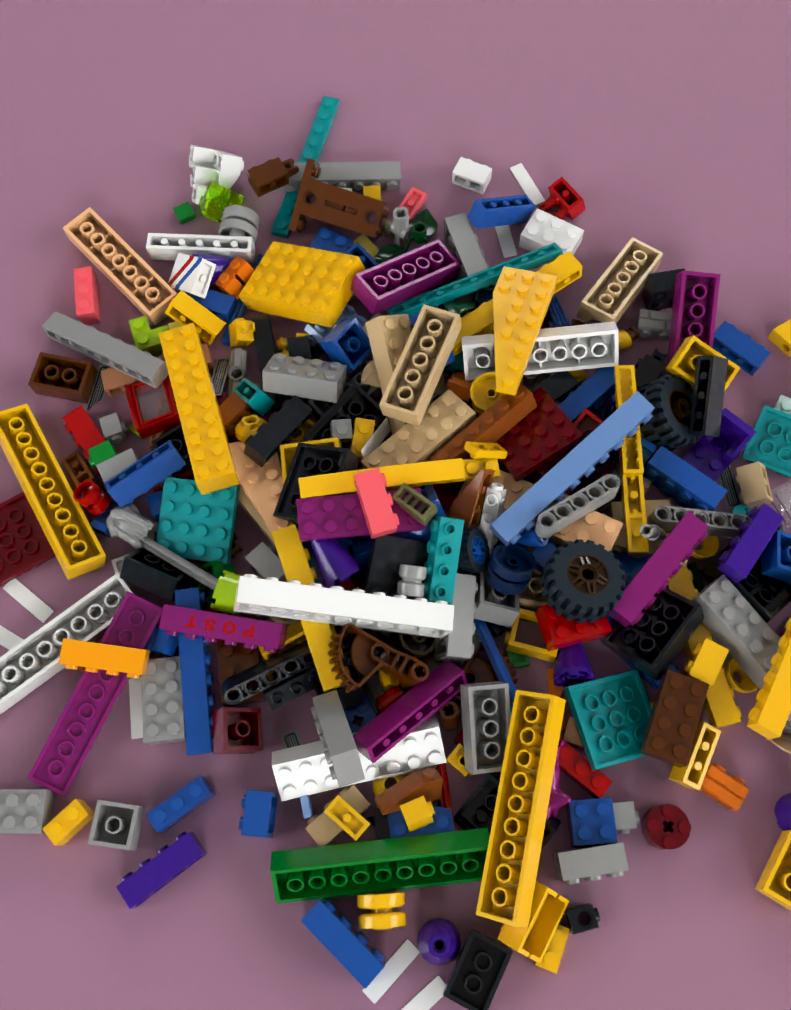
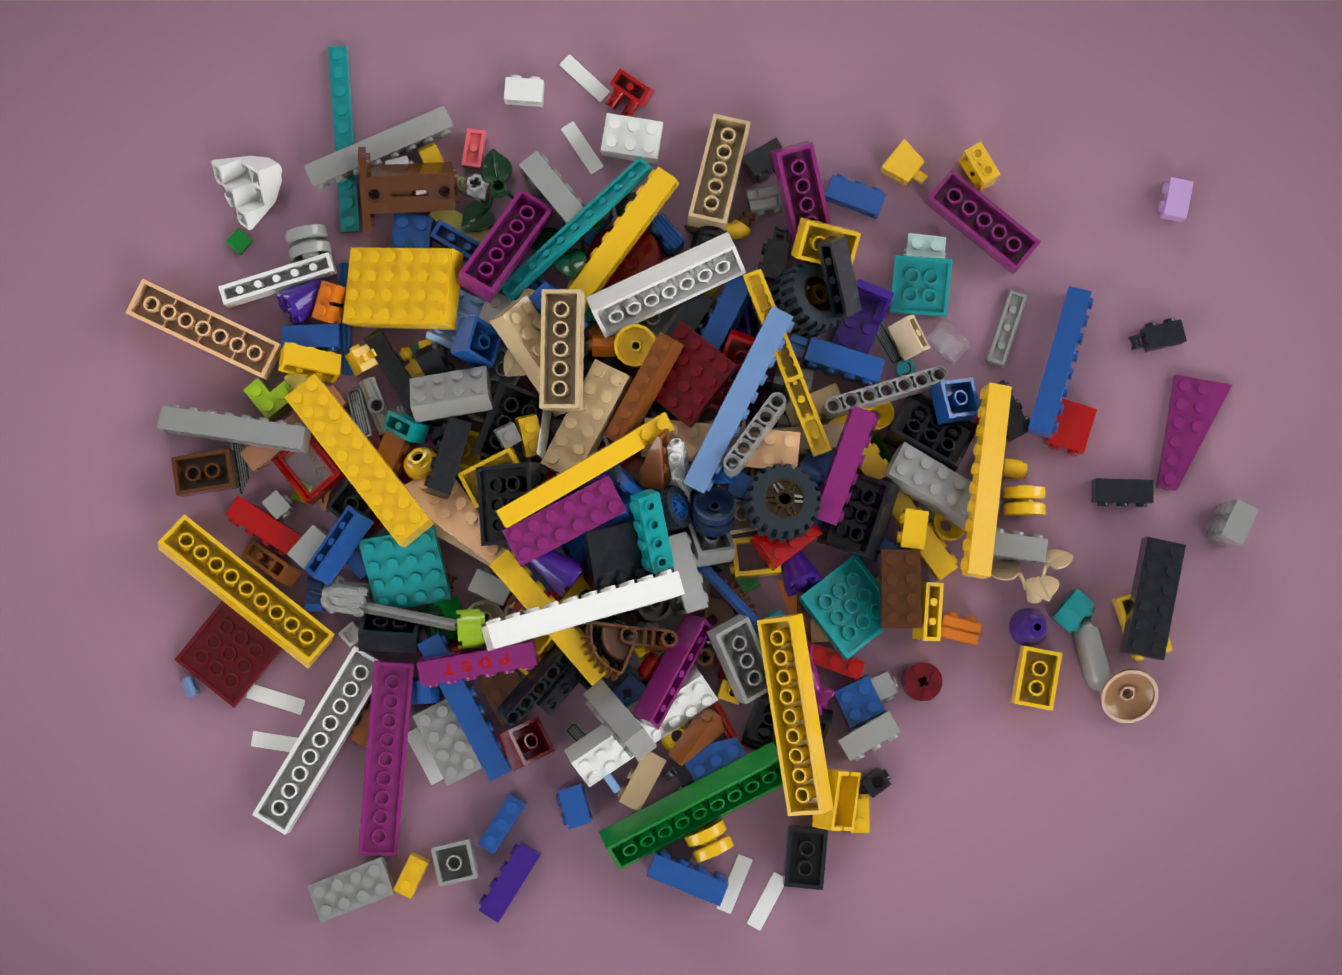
camera: 25 degrees left, 15 degrees up
(86, 295) = (183, 375): coral brick -> none
(92, 497) = (295, 584): red wheel -> none
(101, 453) = (286, 540): green brick -> none
(104, 657) = (381, 728): light orange brick -> none
(191, 275) = (285, 319): white panel -> none
(216, 199) = (274, 221): clear neon green brick -> none
(271, 175) = (321, 179): reddish brown brick -> none
(347, 817) = (651, 779): yellow plate -> none
(376, 503) = (576, 508): coral brick -> none
(411, 580) = (633, 565): light grey wheel -> none
(416, 514) = (627, 494): olive slope -> none
(417, 813) = (710, 753): yellow brick -> none
(436, 930) = (762, 838): dark purple cone -> none
(485, 450) = (652, 410): yellow plate -> none
(501, 211) = (572, 132): blue brick -> none
(518, 313) = (633, 253): yellow wing -> none
(653, 532) = (829, 431): light grey pin -> none
(749, 543) = (919, 403): dark purple brick -> none

